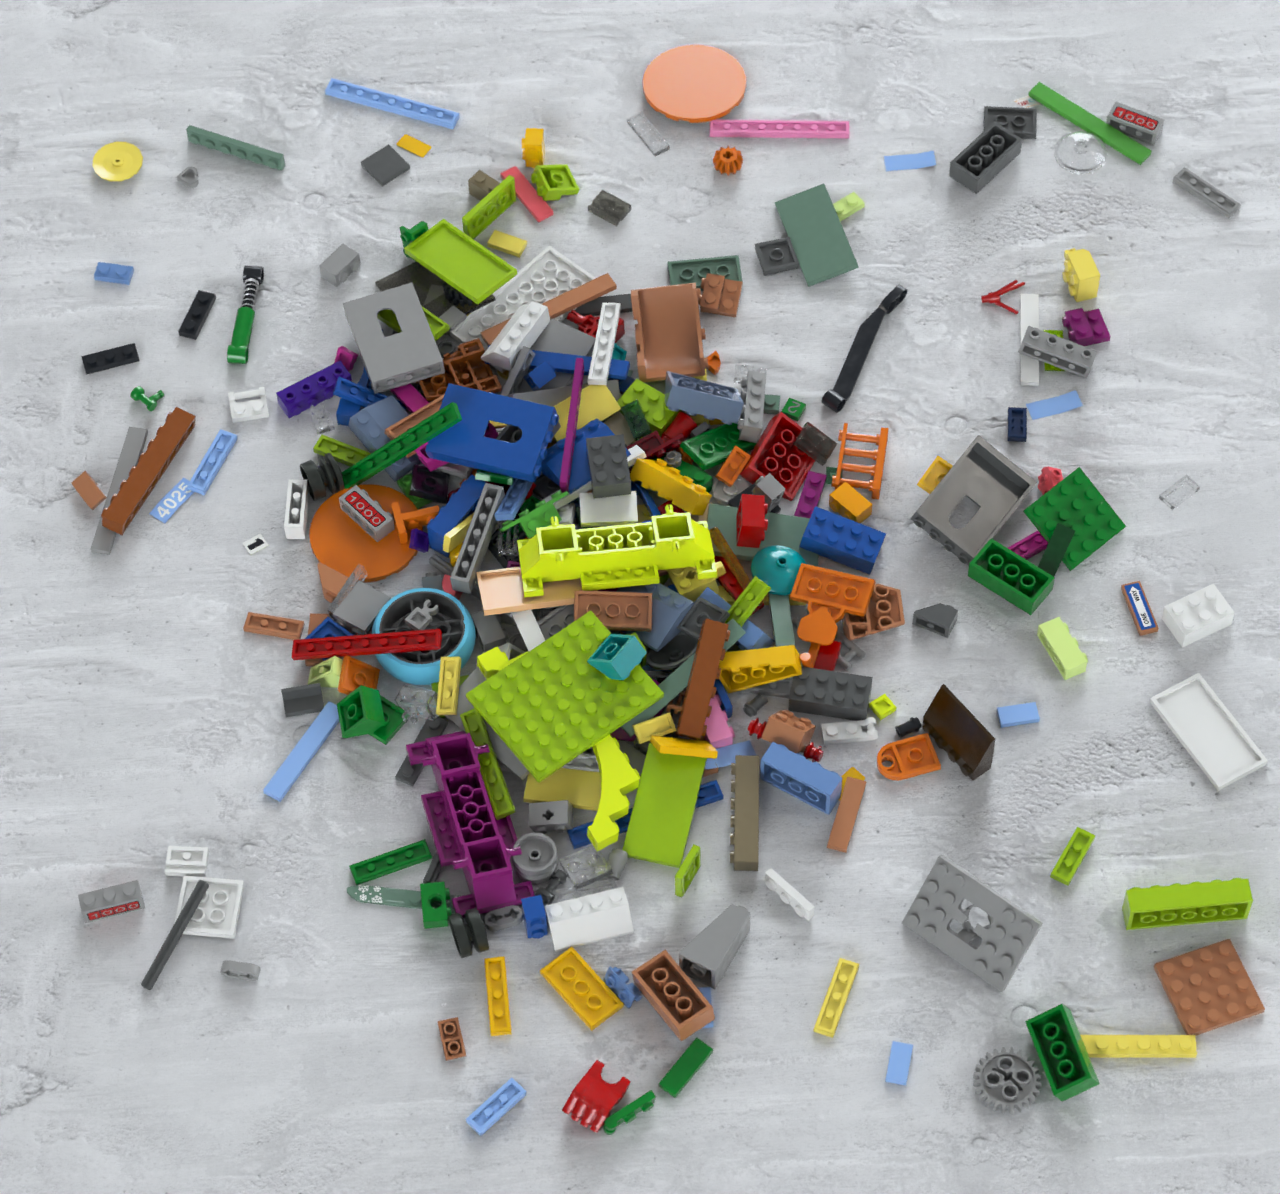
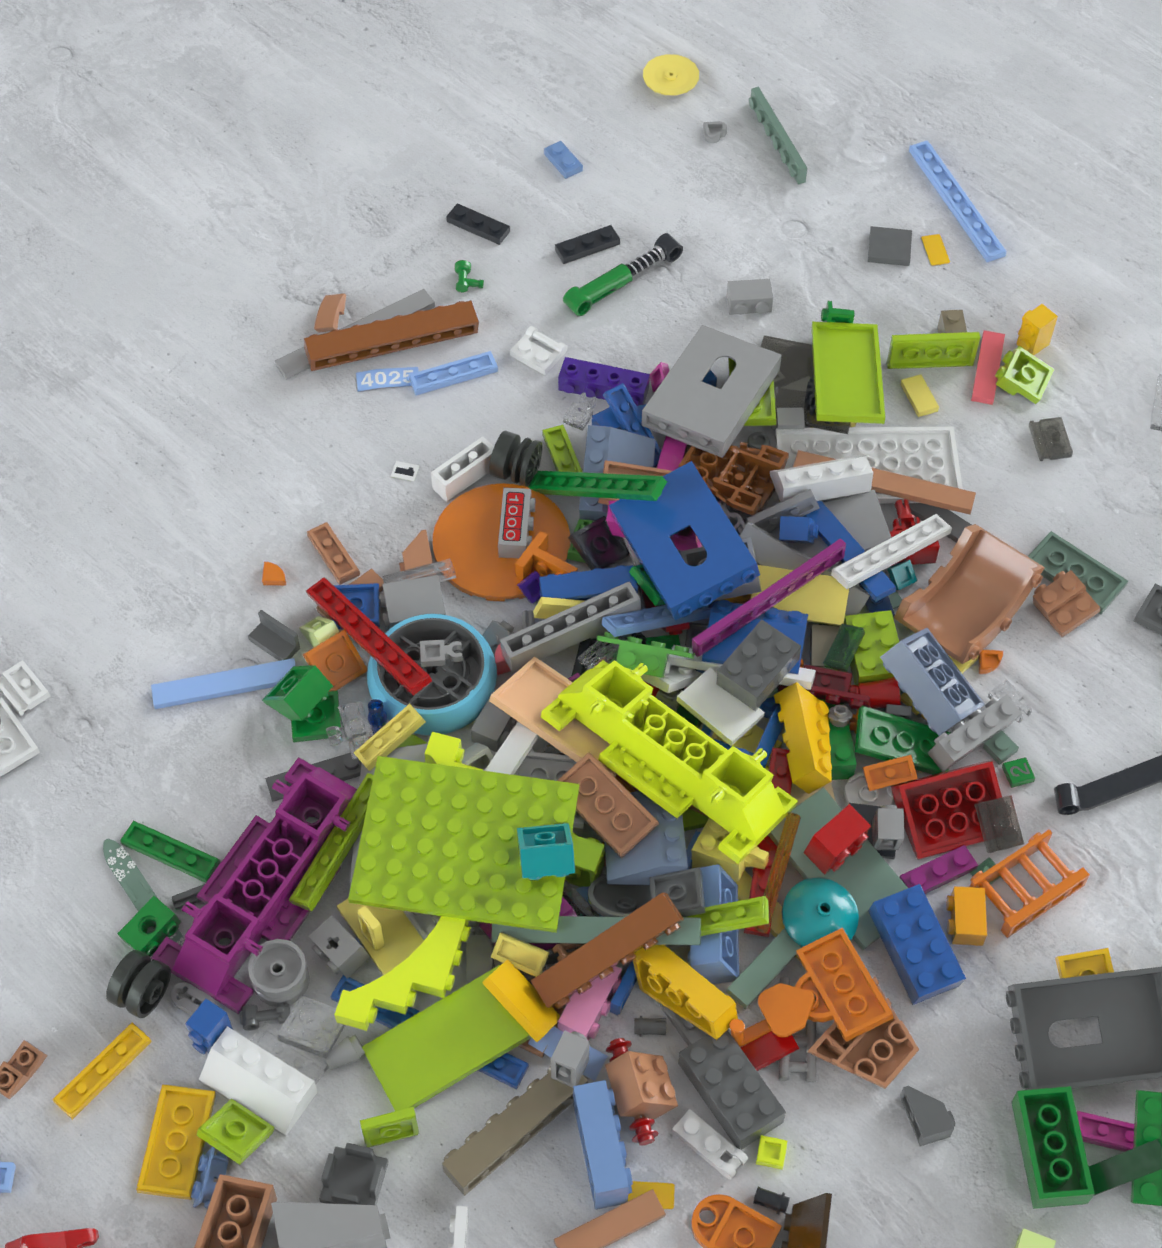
camera: 45 degrees right, 0 degrees up
(254, 669) = (273, 575): none -> orange tile
(422, 680) = (376, 717): none -> clear blue pin
(563, 786) = (371, 928): none -> light yellow tile
(609, 951) = (235, 1131): none -> lime tile
(693, 912) = (353, 1176): none -> dark grey panel
(744, 748) = (570, 1058): none -> light grey brick

